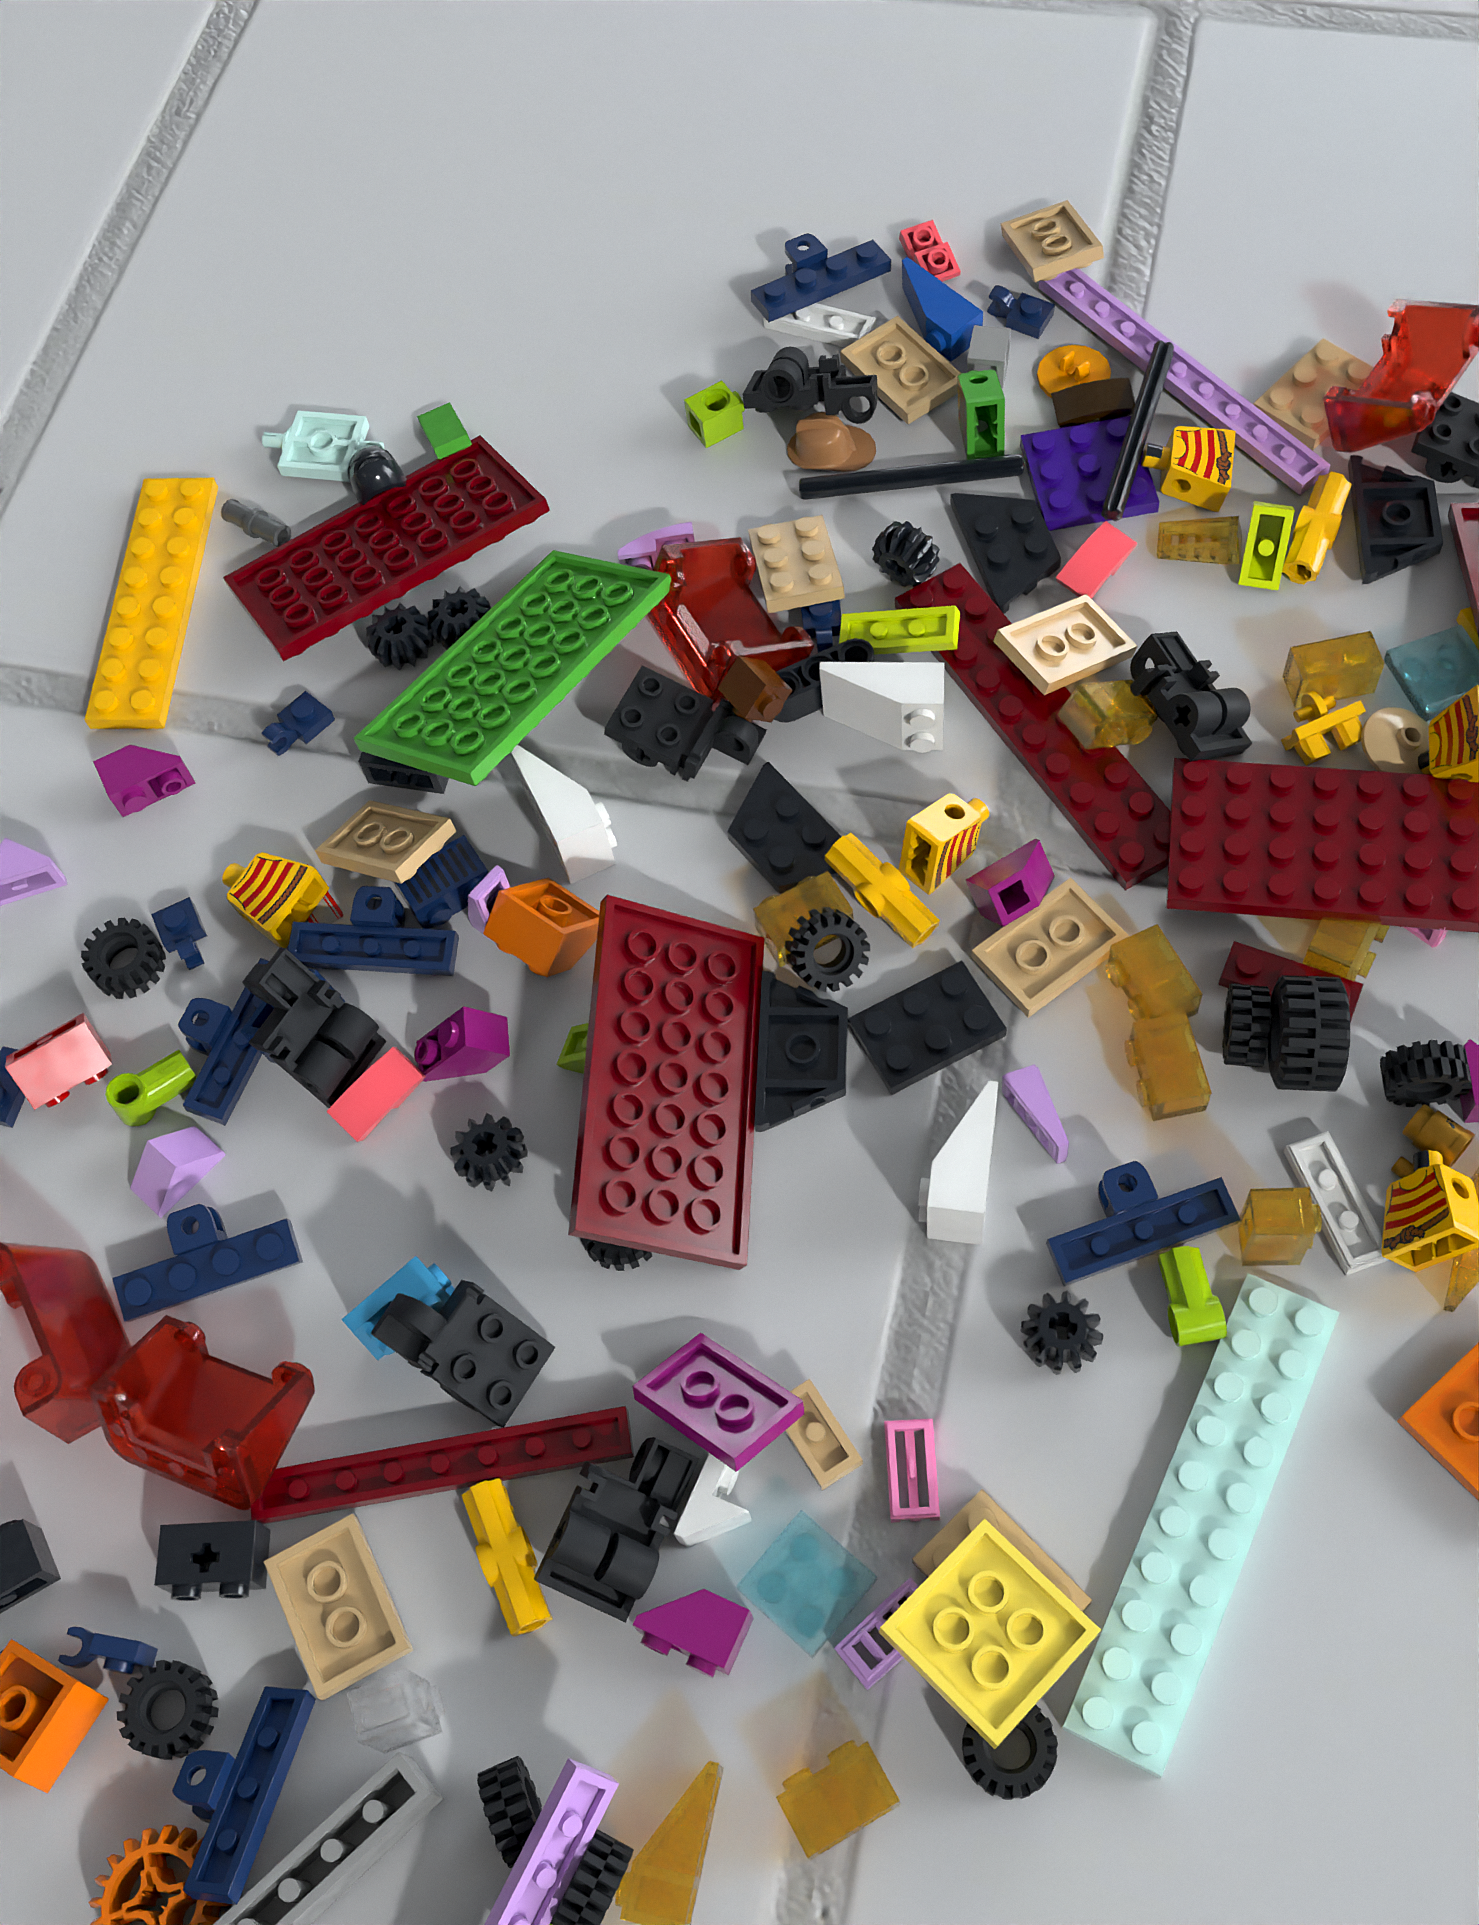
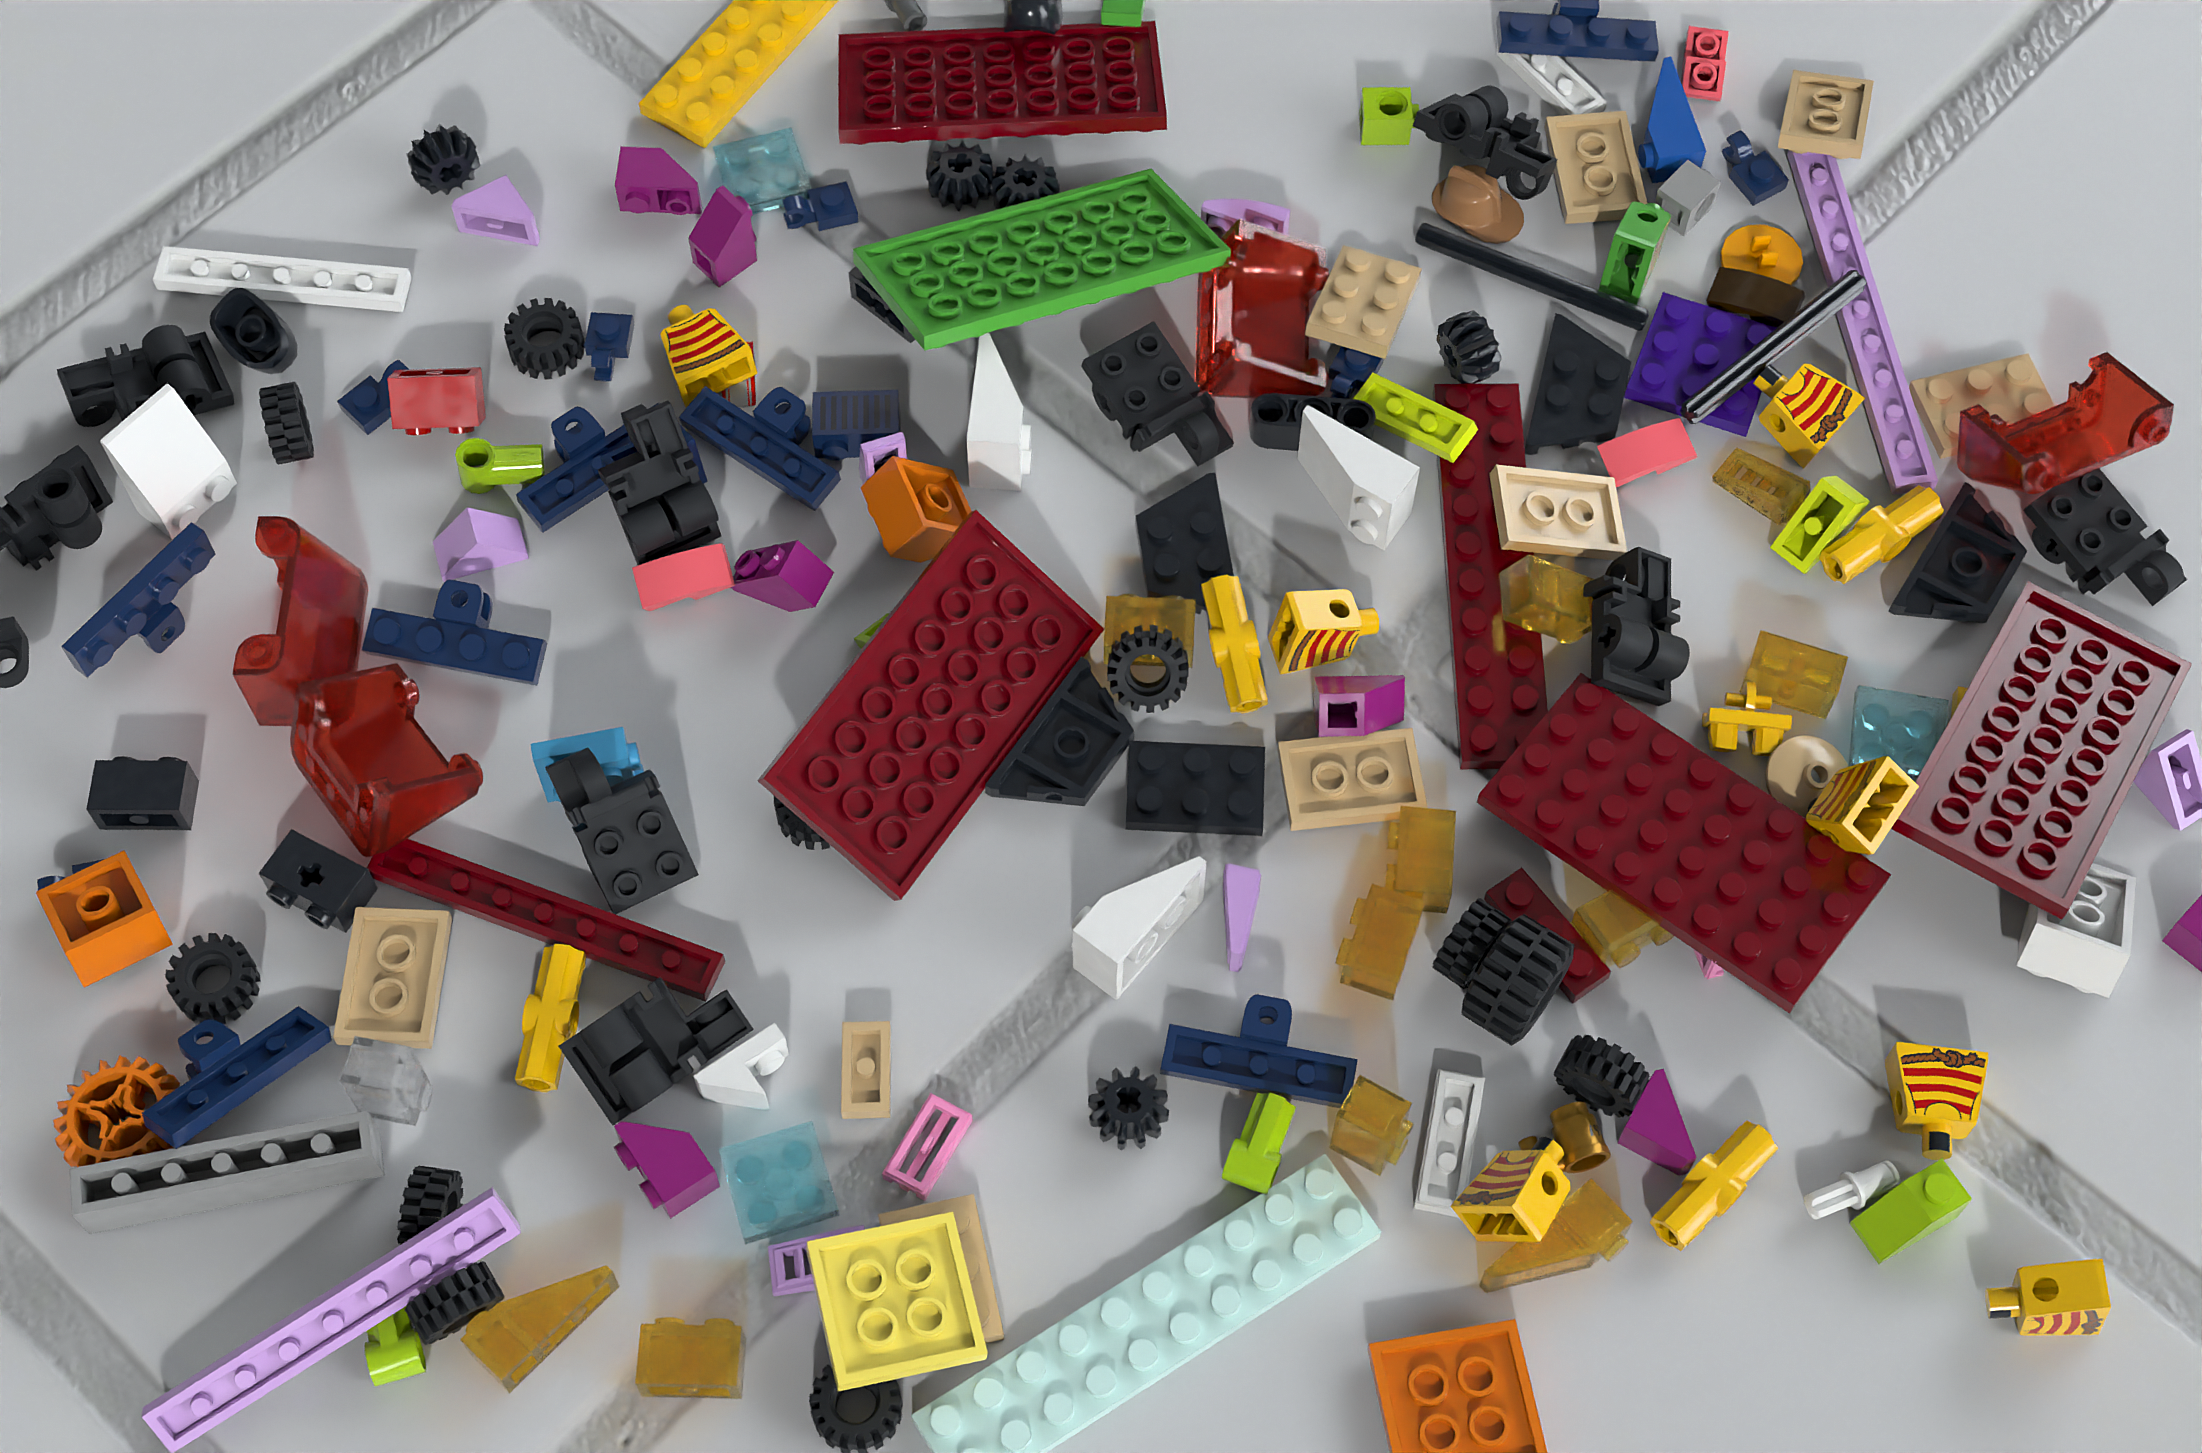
camera: 20 degrees right, 0 degrees up
(119, 1653) = (200, 912): dark blue plate -> none
(226, 721) = (763, 169): none -> clear light blue plate
(231, 789) = (723, 237): none -> magenta slope
(386, 841) = (827, 358): tan plate -> none
(492, 1166) = (729, 677): black gear -> none
(718, 1401) = (799, 992): magenta plate -> none
(754, 690) = (1237, 399): reddish brown brick -> none

